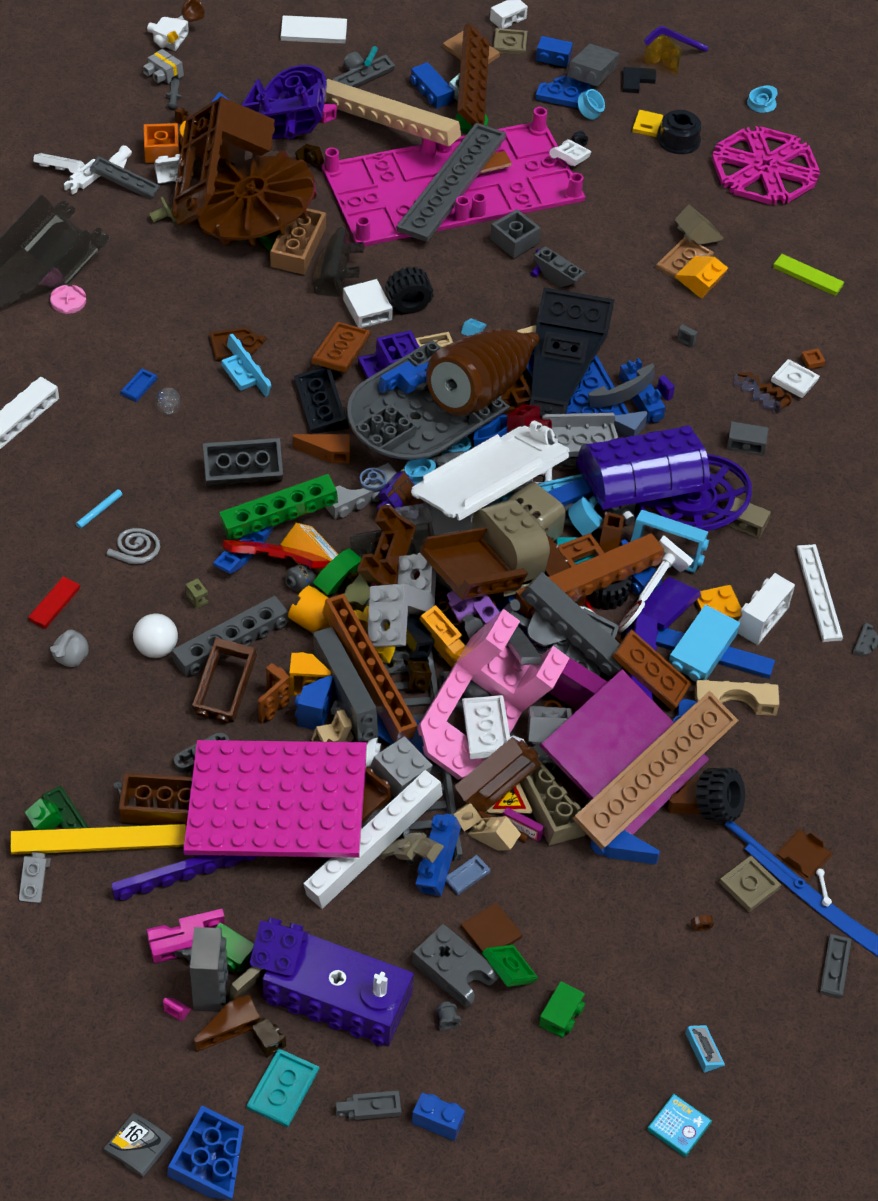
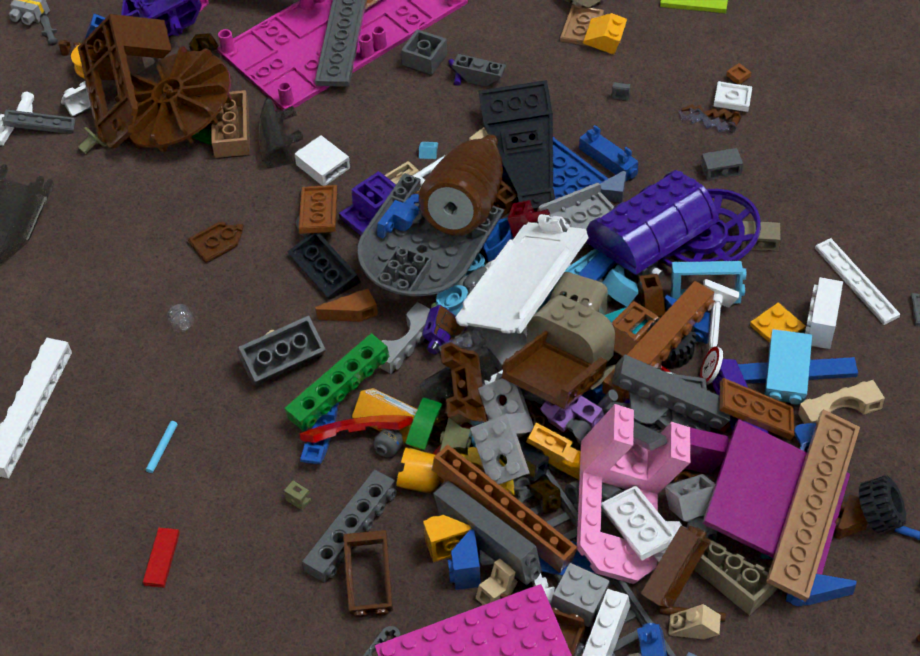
camera: 15 degrees left, 0 degrees up
(68, 299) = (36, 254): bright pink tile -> none
(70, 648) = (200, 599): light grey piece -> none
(137, 543) = (215, 466): light grey piece -> none
(138, 385) = (143, 312): blue tile -> none
(155, 635) = (278, 553): white piece -> none
(160, 141) = (58, 76): orange brick -> none
(243, 369) = (237, 261): medium azure bracket -> none
(277, 693) = (422, 556): dark orange bracket -> none
(373, 472) = (410, 315): sand blue piece -> none
(409, 290) = (356, 135): black tyre -> none
(467, 816) = (663, 616): tan bracket -> none
(514, 800) = (696, 587): piece -> none
(525, 824) = (718, 604): magenta tile -> none
(602, 397) = (582, 171): dark grey slope -> none
(665, 387) = (627, 141): dark purple tile -> none
(669, 601) = (736, 337): dark purple tile -> none

